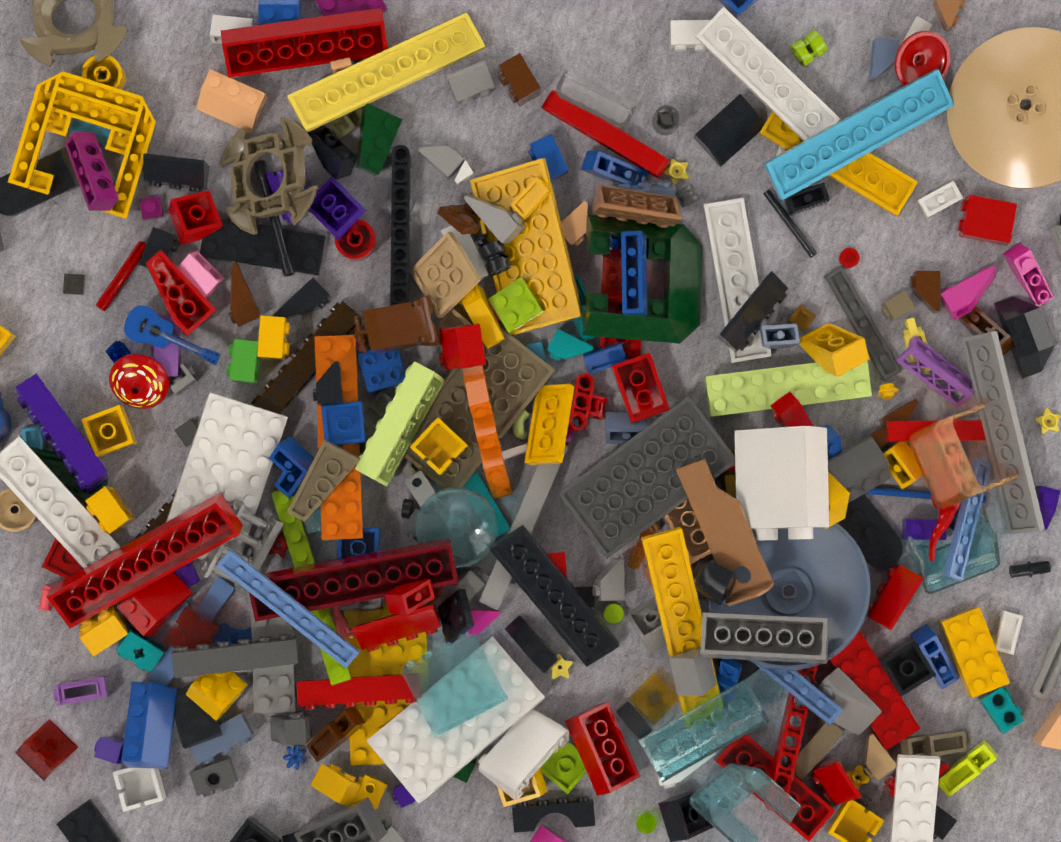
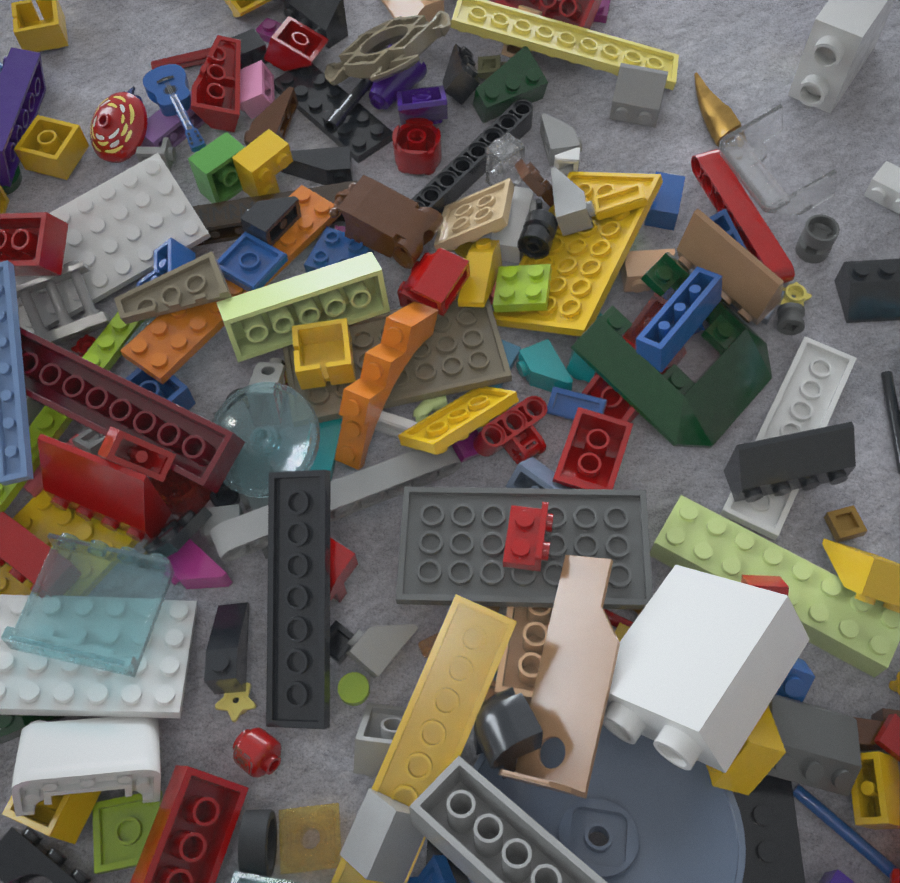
camera: 45 degrees right, 25 degrees down
(74, 284) = (152, 41): clear smoke tile -> none
(519, 80) = (687, 119): reddish brown brick -> none
(535, 54) = (717, 115): none -> pearl gold piece
(594, 682) = (257, 752): none -> red head
(647, 474) = (526, 537): none -> red bracket
(779, 336) = (805, 515): sand blue slope -> none

